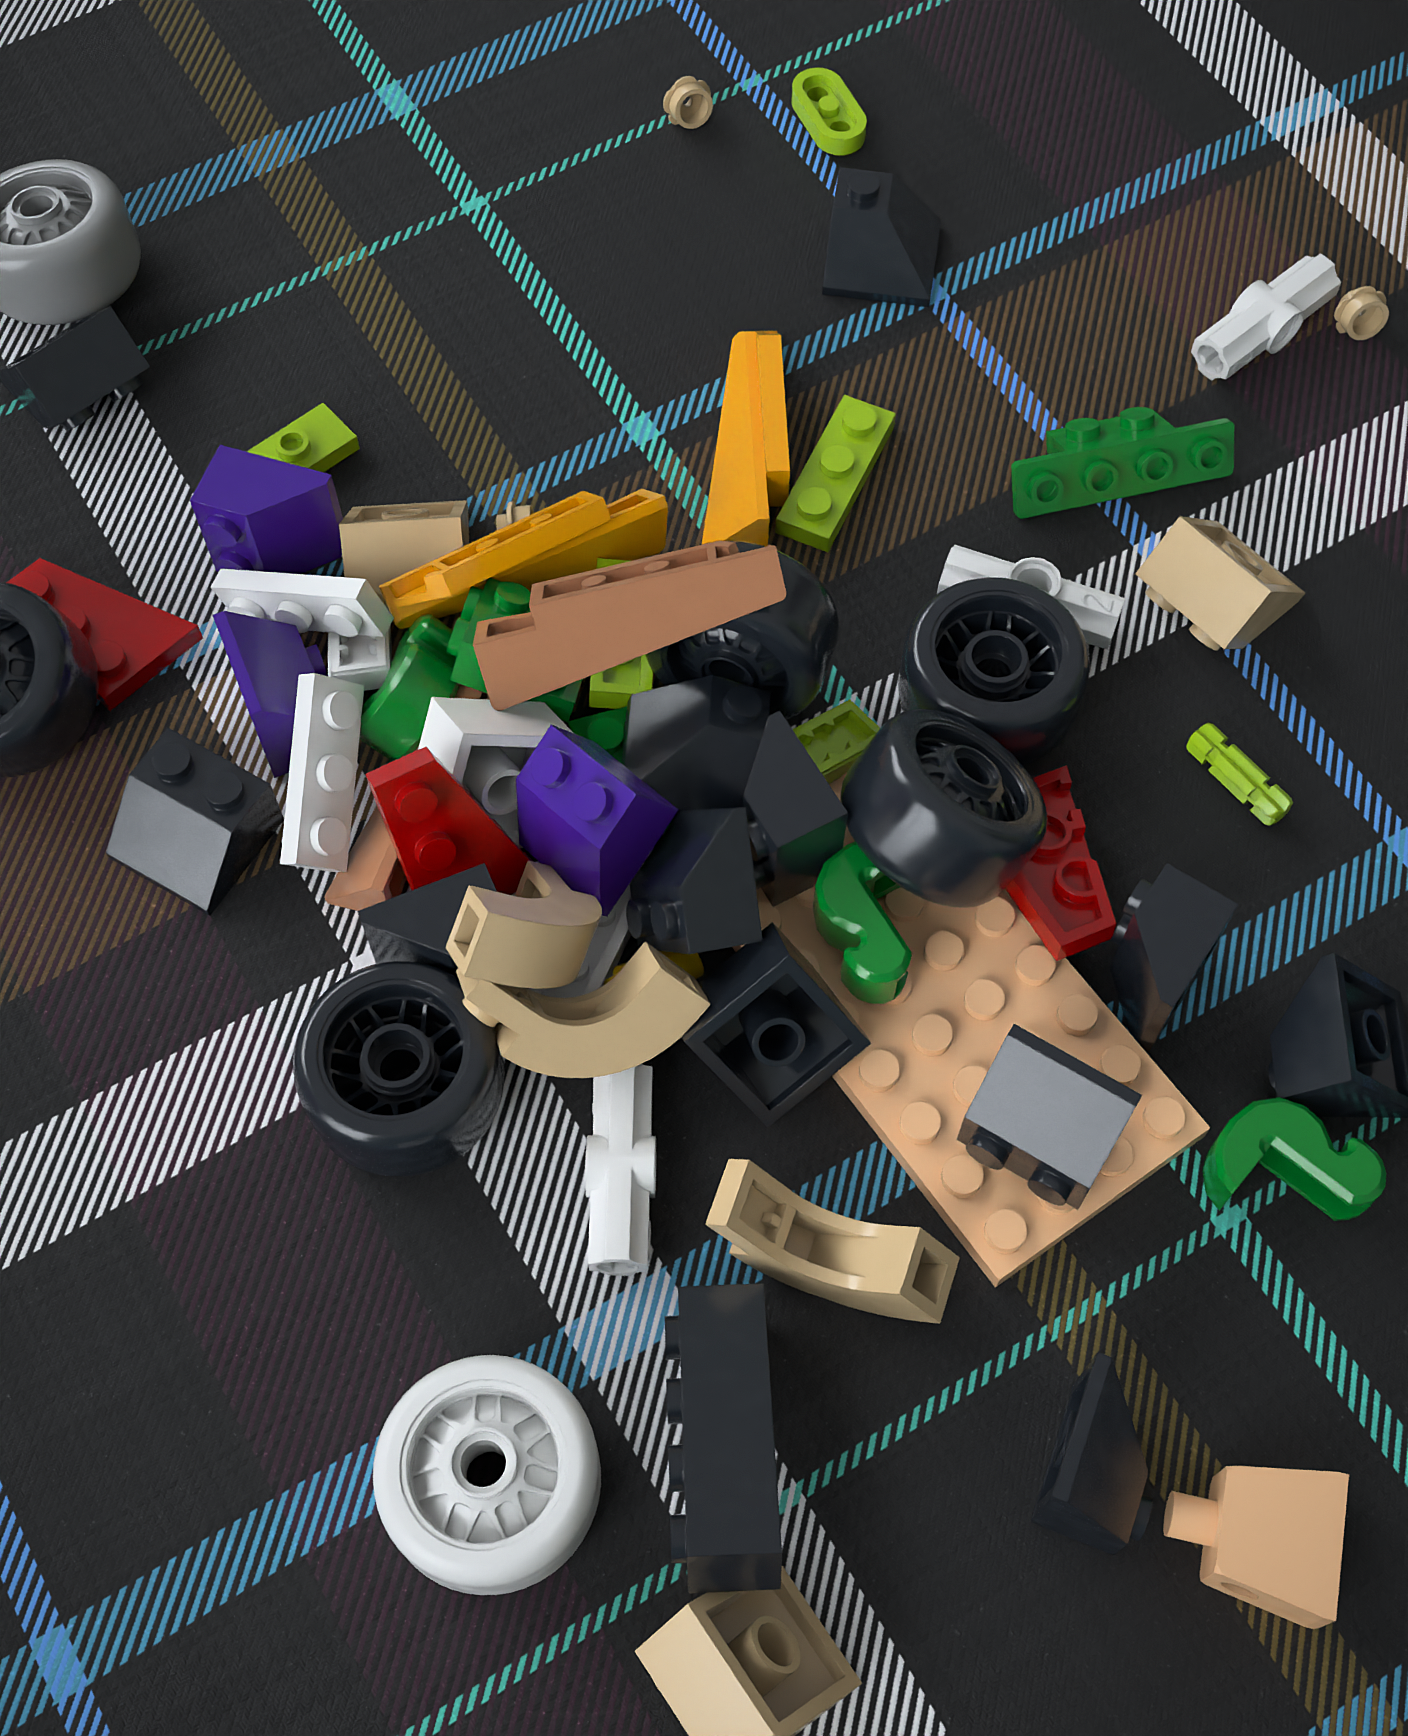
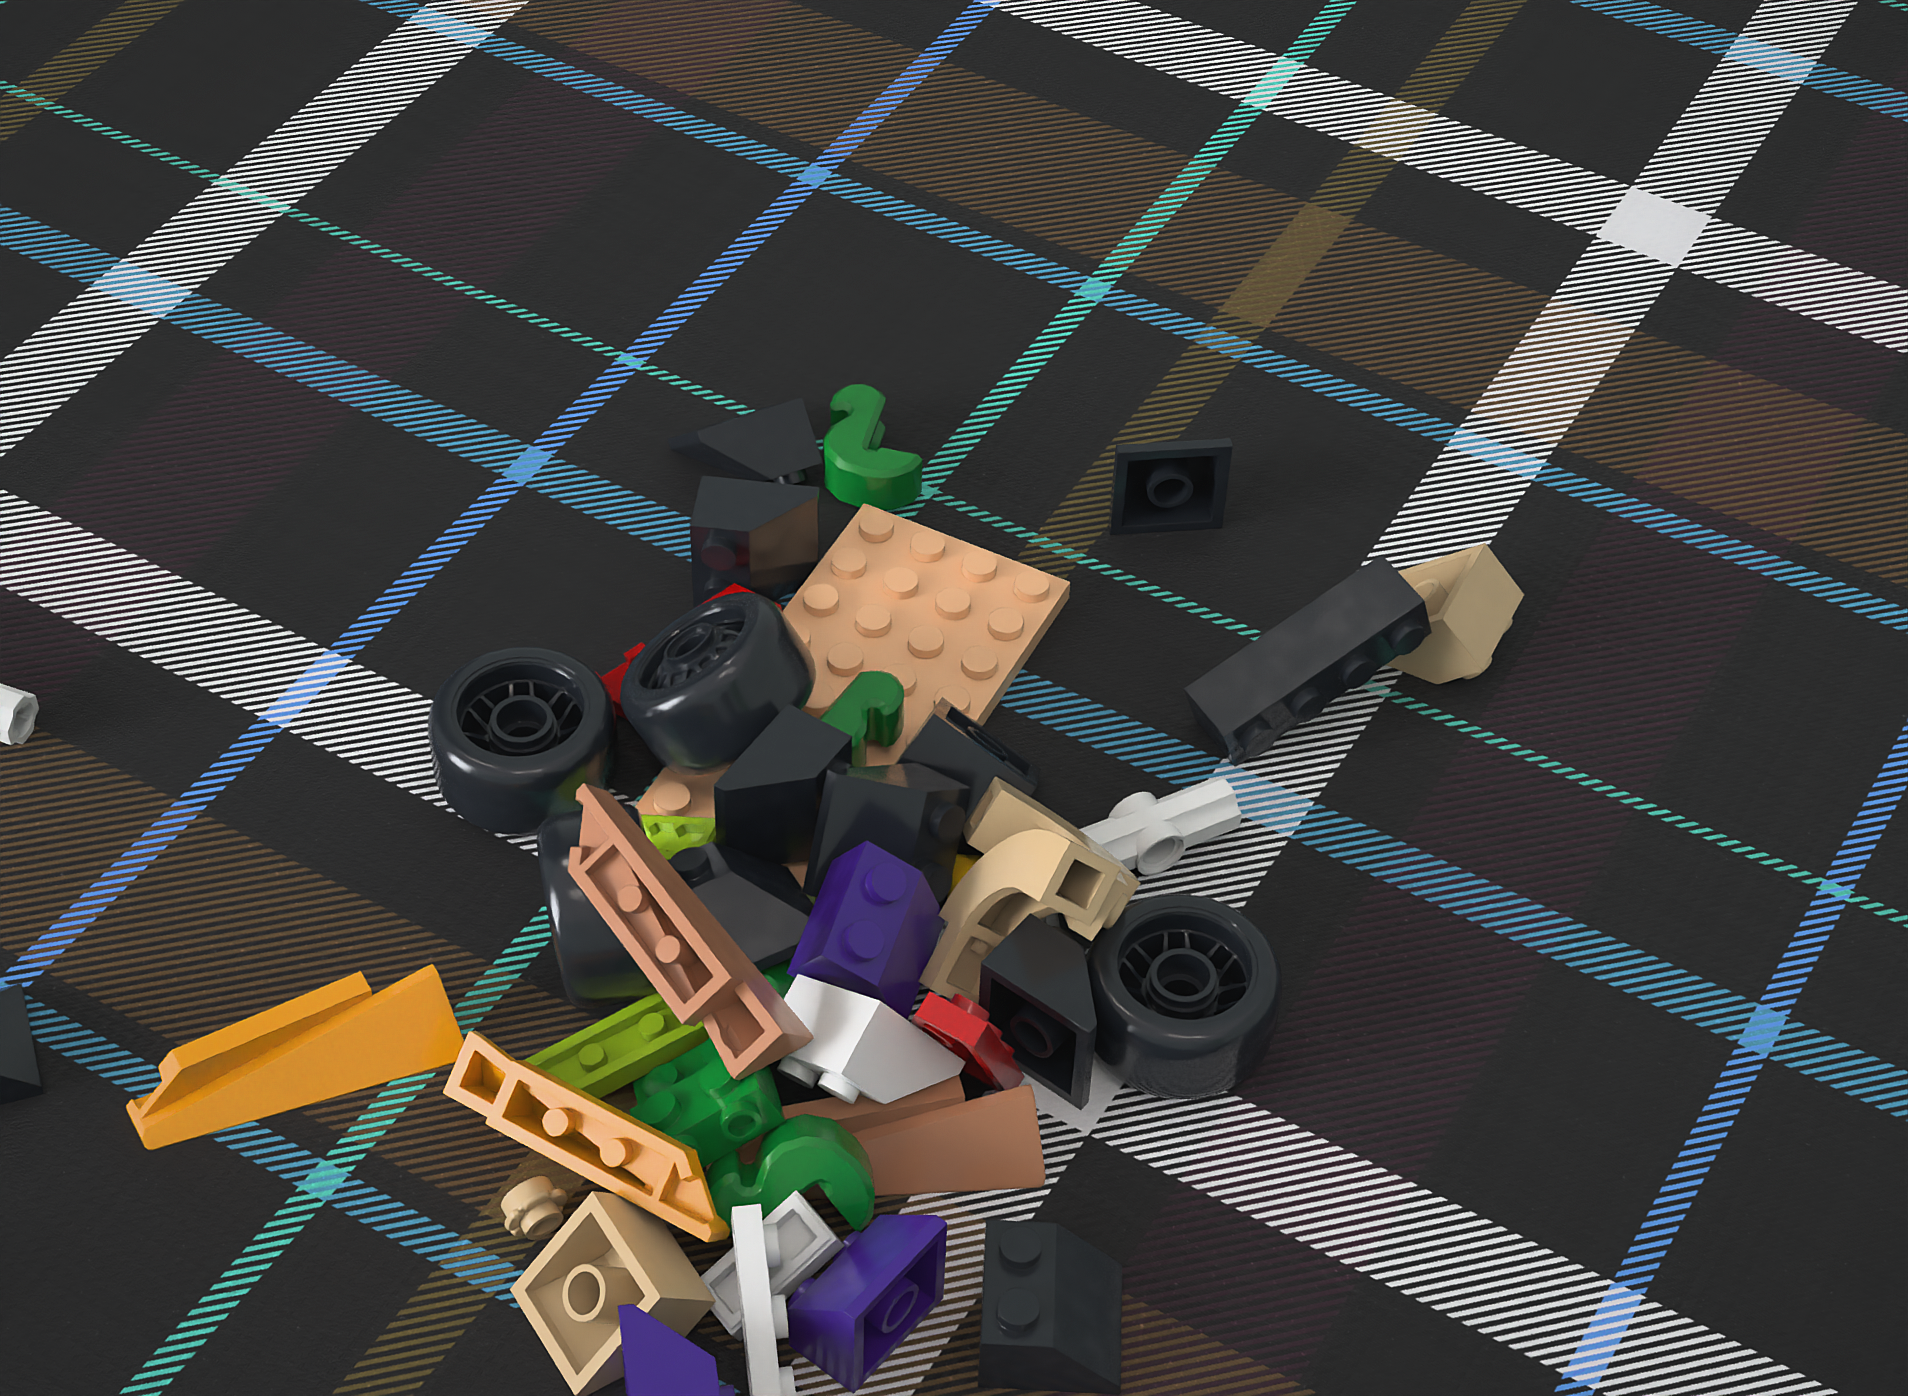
camera: 120 degrees left, 15 degrees down
(322, 773) = (940, 1189): white plate -> none
(498, 1533) = (1440, 796): white wheel -> none
(832, 1256) = (1121, 664): tan arch -> none
(835, 473) = (273, 973): lime plate -> none
(1046, 1118) = (951, 554): slope -> none
(1092, 608) = (404, 760): white piece -> none
(1119, 459) = (183, 758): green bracket -> none
(1216, 583) = (318, 633): tan slope -> none
(1239, 774) = (516, 577): lime axle -> none
(1269, 1538) = (1144, 390): light nougat torso -> none

